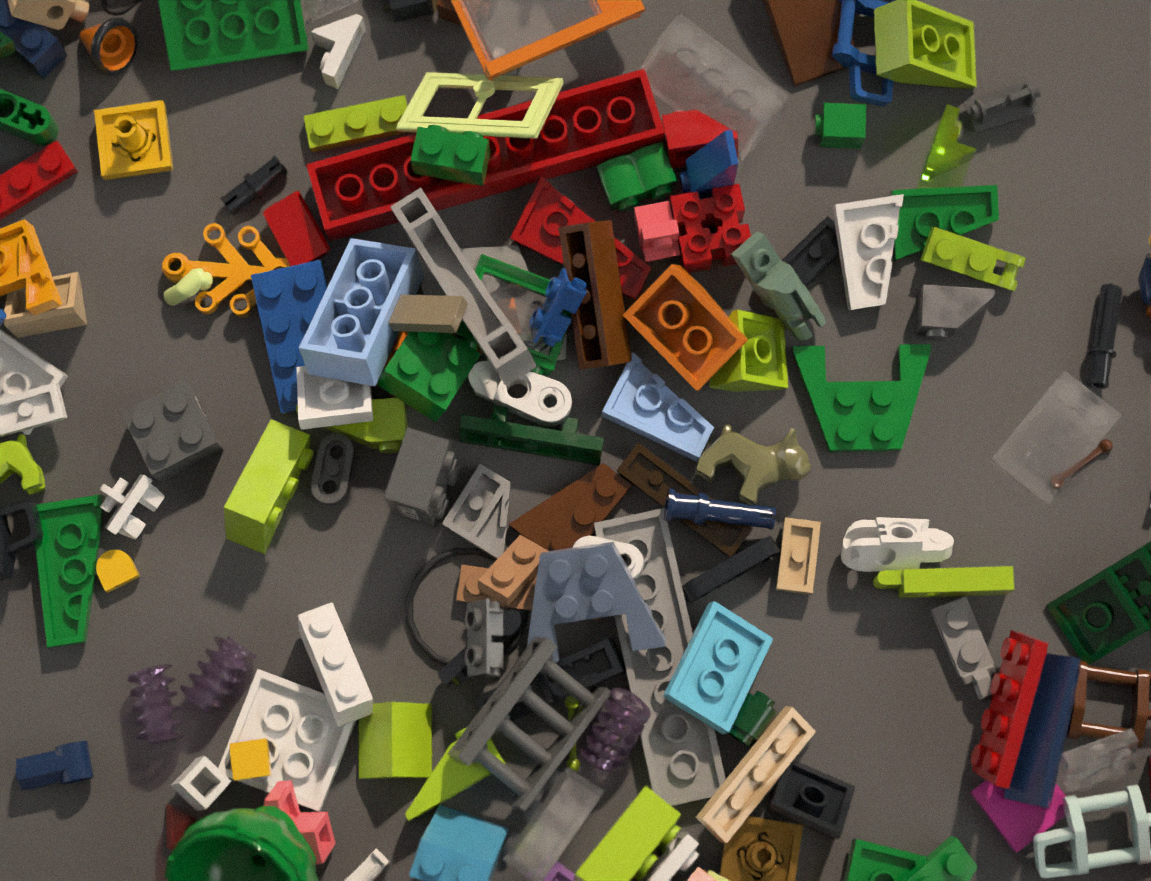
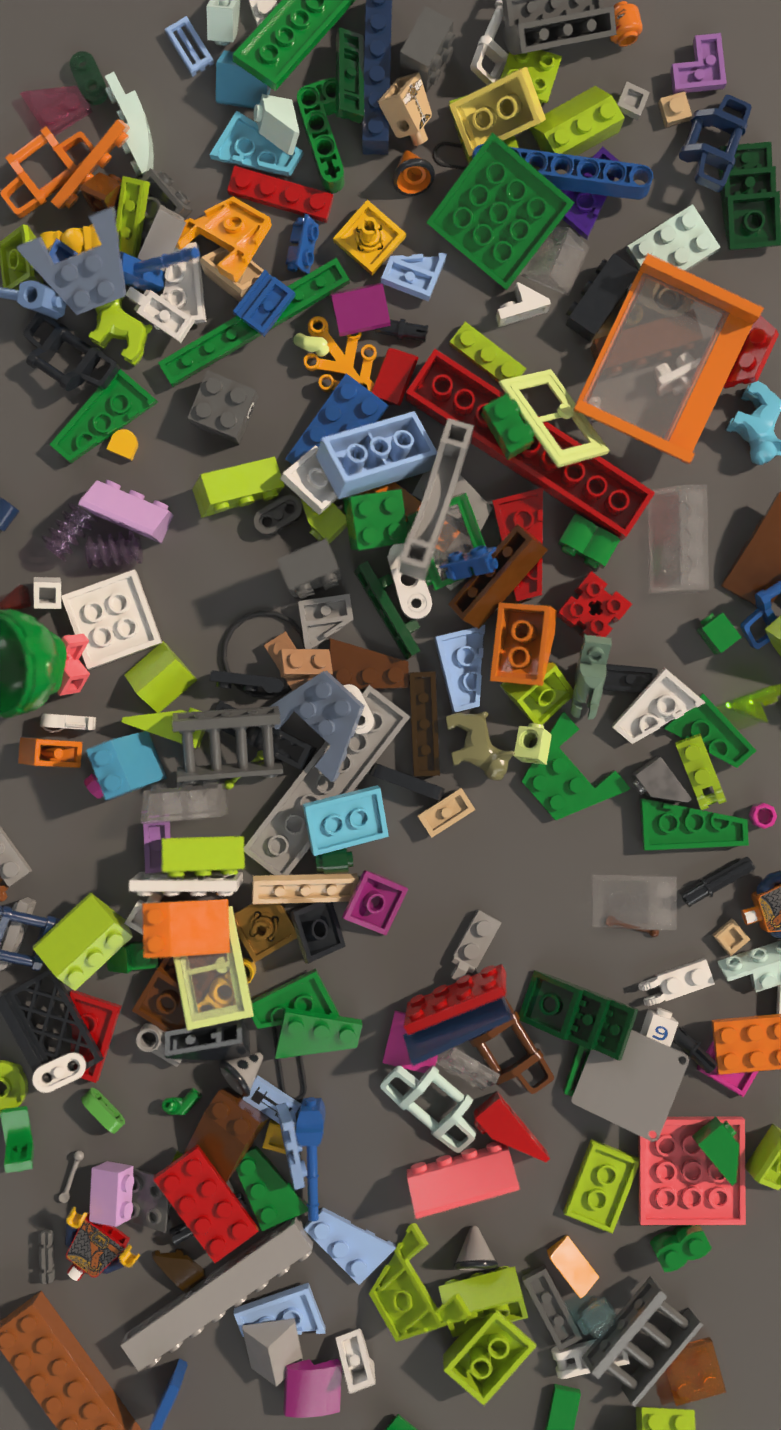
camera: 45 degrees right, 10 degrees up
(71, 200) = (305, 233): none -> blue hinge
(105, 297) = (264, 303): none -> blue plate
(113, 329) = (237, 333): none -> green plate
(141, 492) = (152, 423): white hips -> none
(190, 622) = (127, 510): none -> lavender slope
(198, 207) = (360, 309): none -> magenta slope
(210, 127) = (414, 274): none -> light blue wing
(250, 759) = (82, 608): yellow tile -> none
(335, 664) = (170, 610): white brick -> none
(428, 313) = (403, 493): dark tan tile -> none
(482, 621) = (241, 686): dark grey hinge -> none
(616, 731) = (263, 793): clear purple piece -> none
(657, 231) = (565, 580): coral brick -> none
(688, 133) = (639, 557): red slope -> none
(701, 508) = (426, 738): dark blue pin -> none
(711, 166) = (627, 580): blue slope -> none
(815, 407) = (538, 753): none -> yellowish green brick
(833, 712) = (375, 902): none -> magenta slope
(893, 544) = (496, 861): white piece -> none
(947, 581) = (500, 907): lime hinge -> none
(1015, 327) = (682, 827): none -> green wing
(1071, 234) = (762, 815): none -> dark pink tile

